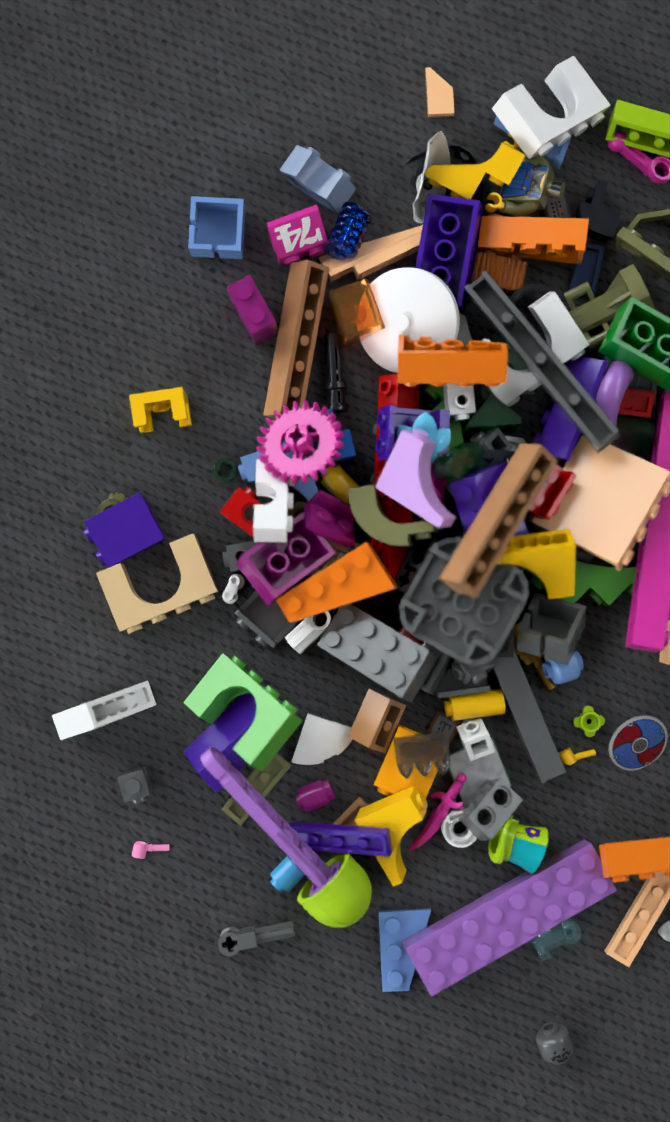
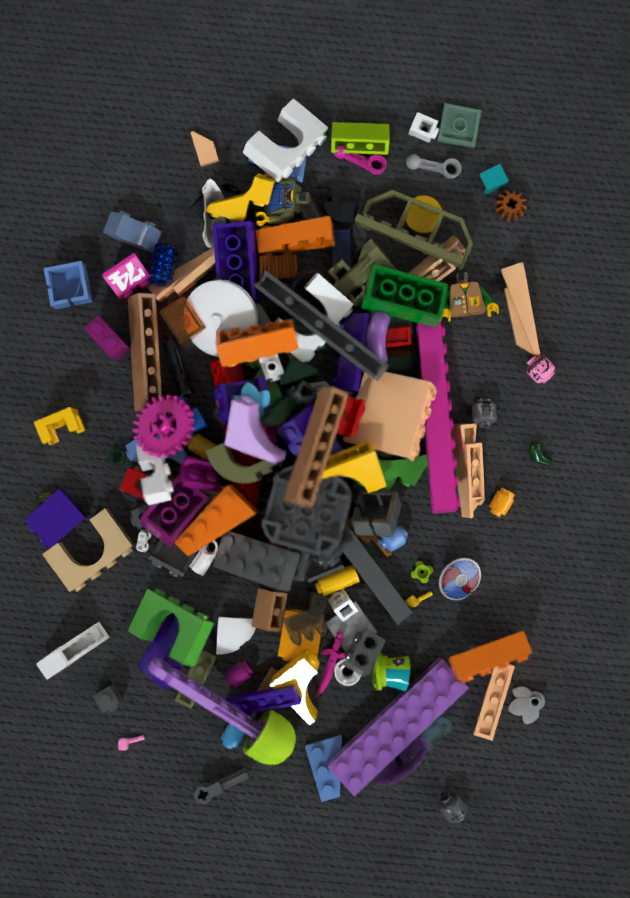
camera: 10 degrees left, 0 degrees up
(506, 975) = (393, 771): none -> medium lavender piece

